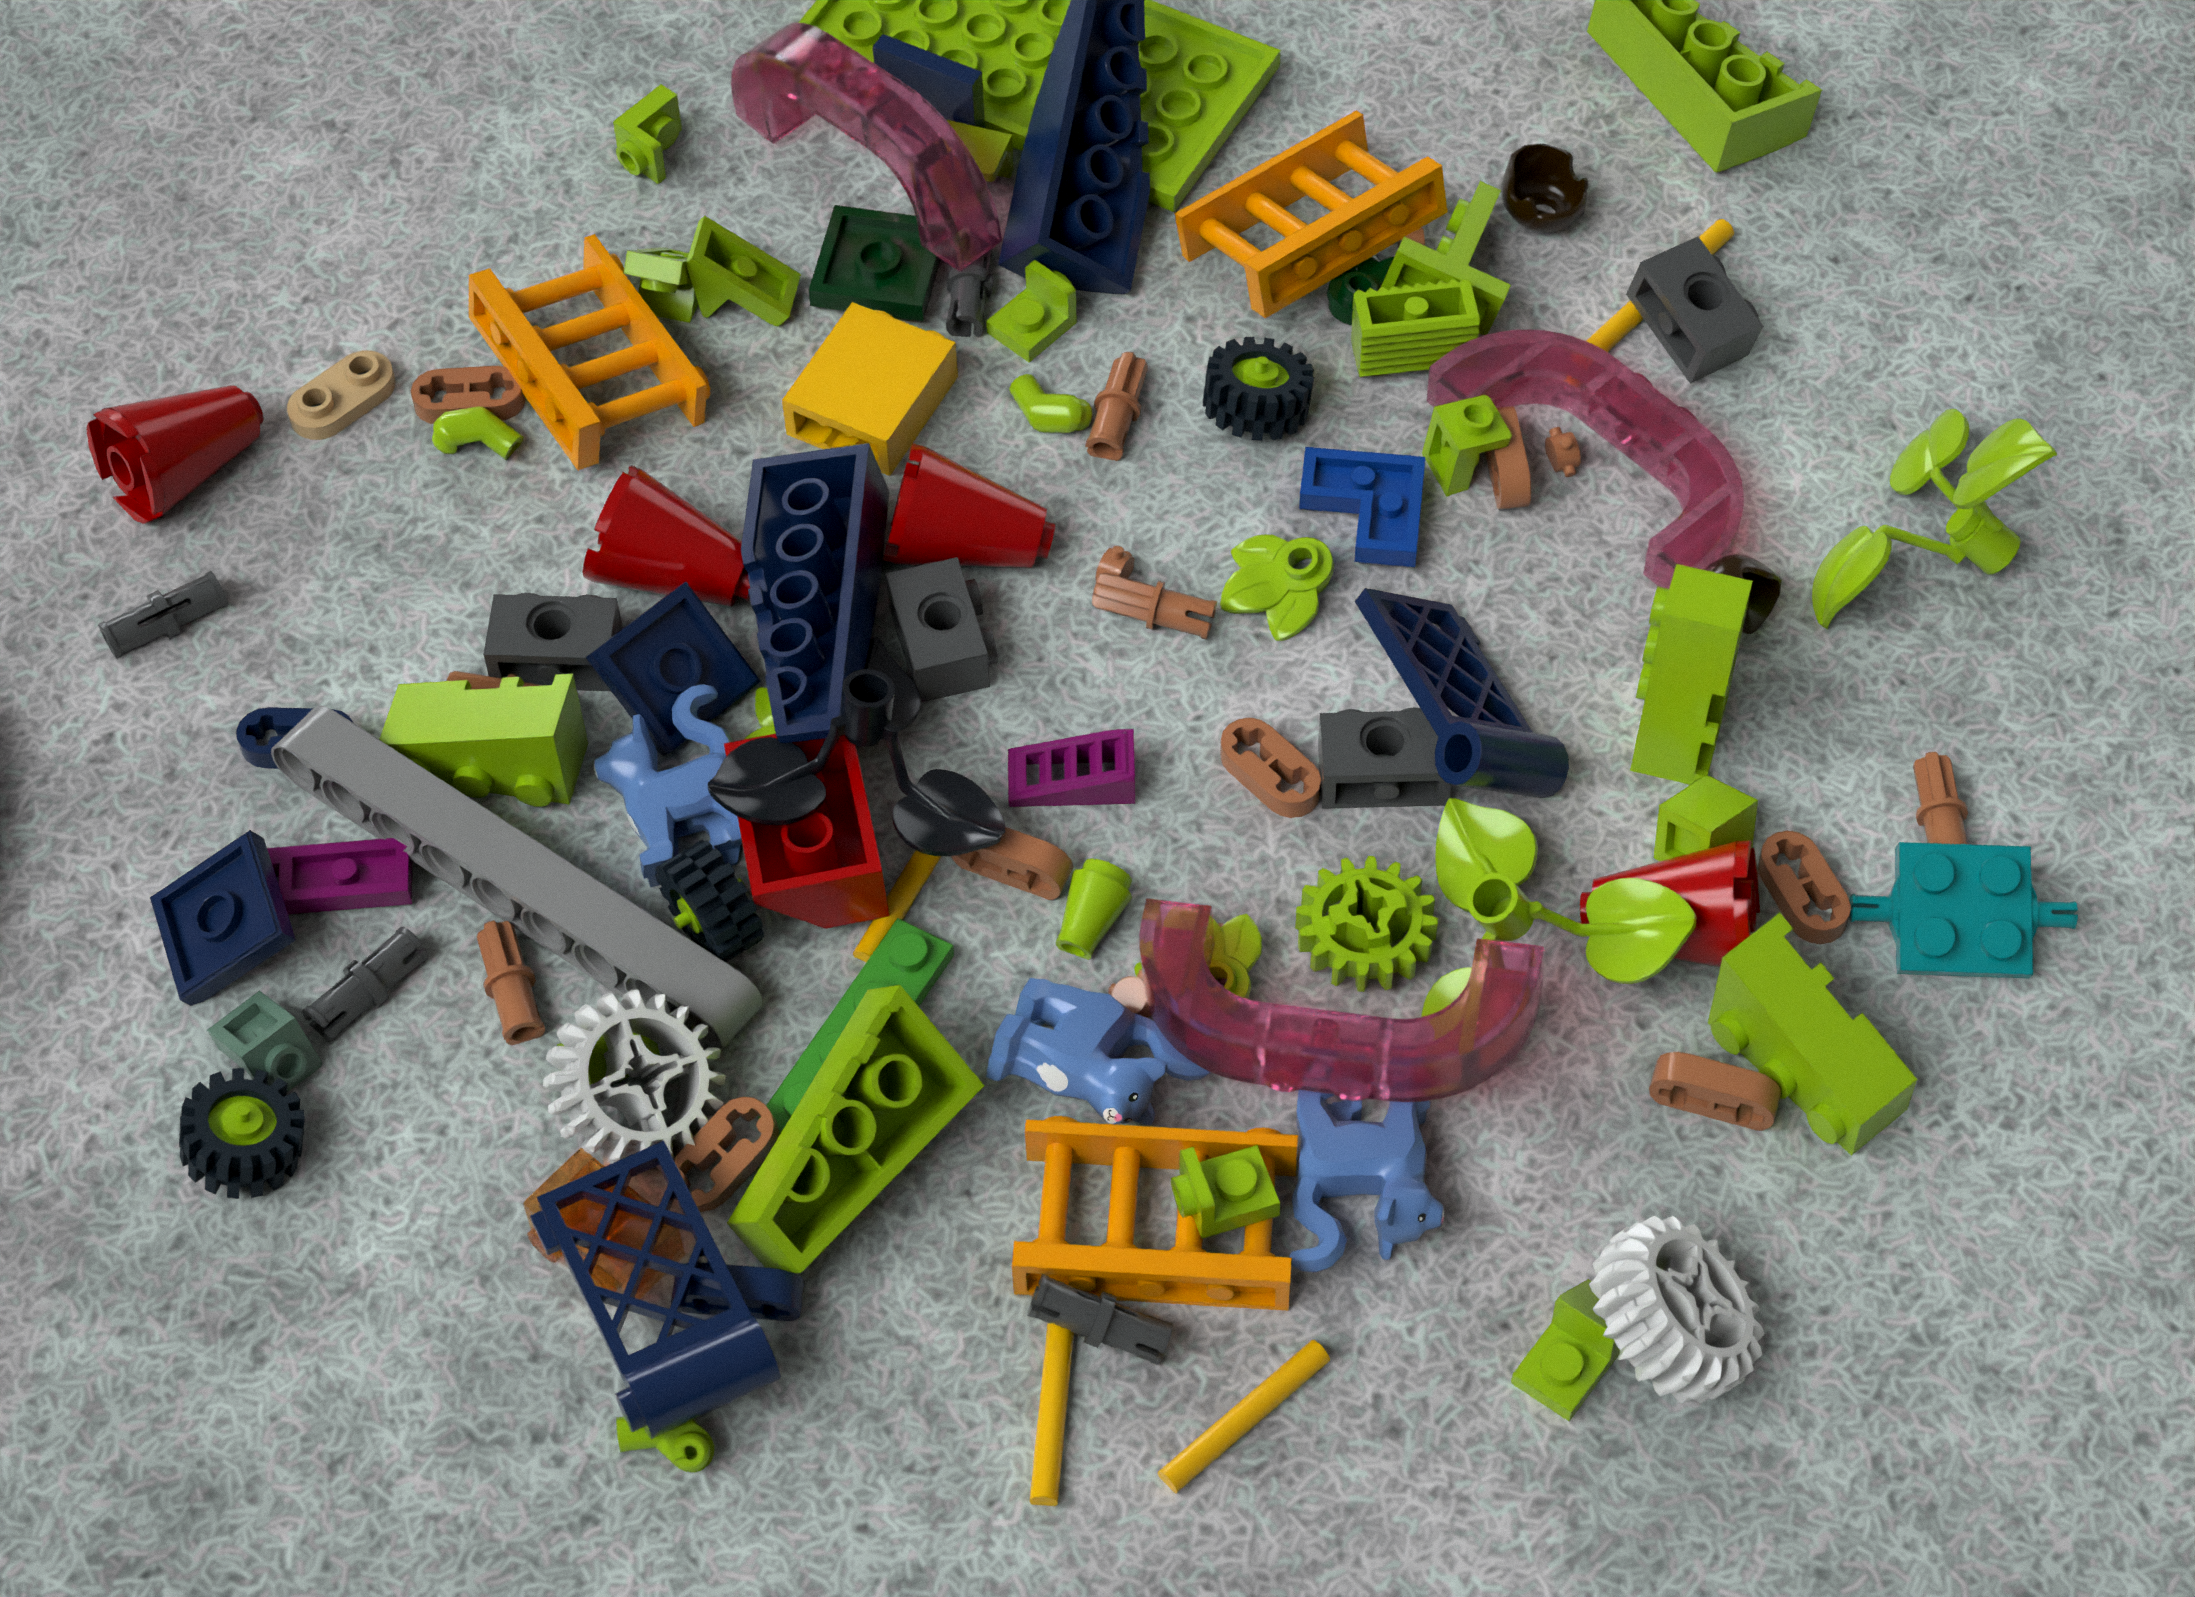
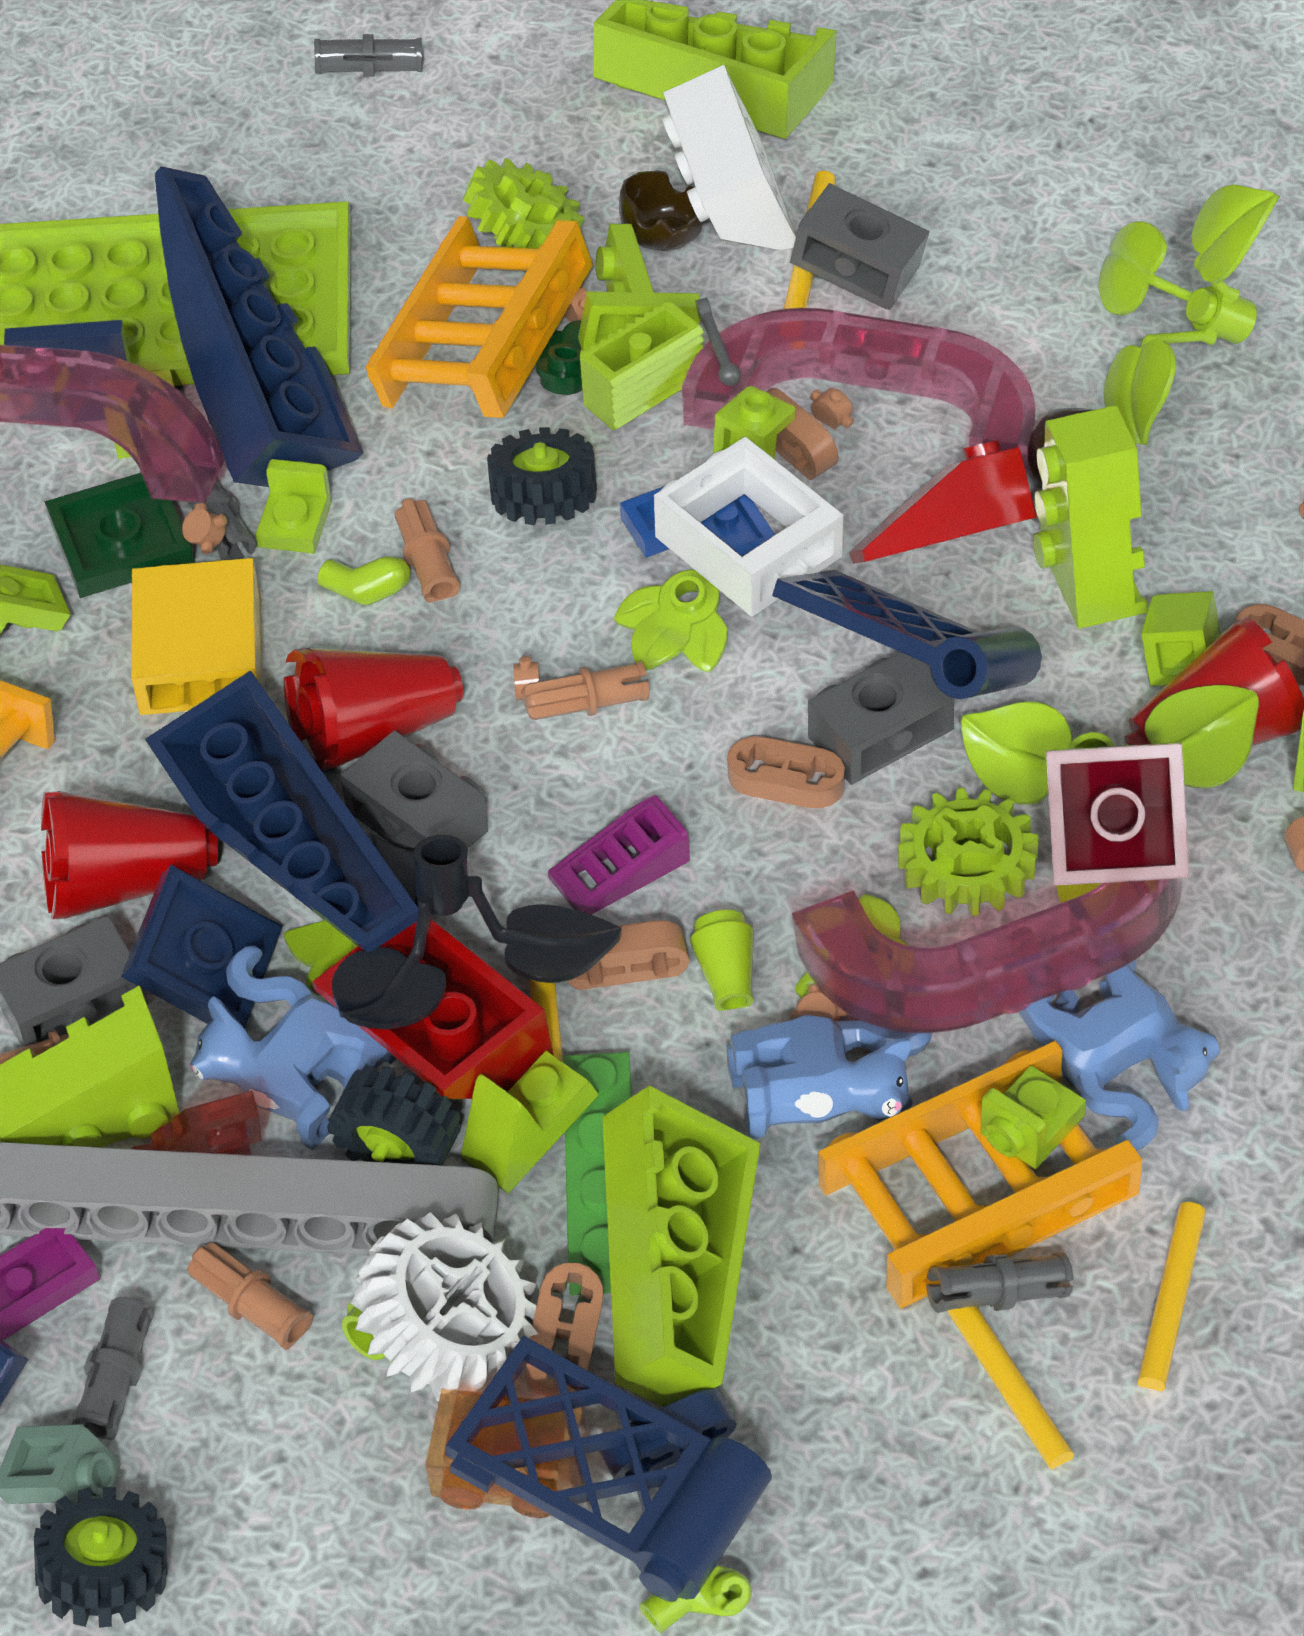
camera: 30 degrees left, 5 degrees down
(573, 831) = (211, 1127): none -> clear red wing
(814, 961) = (517, 1127): none -> lime slope
(941, 294) = (204, 528): none -> nougat piece
(1411, 570) = (804, 547): none -> white window
(1423, 121) = (517, 203): none -> lime gear
(1466, 964) = (1117, 814): none -> dark red slope
(1475, 374) = (729, 373): none -> dark grey hinge
(1596, 599) = (959, 501): none -> red slope
(1632, 172) = (726, 162): none -> white slope

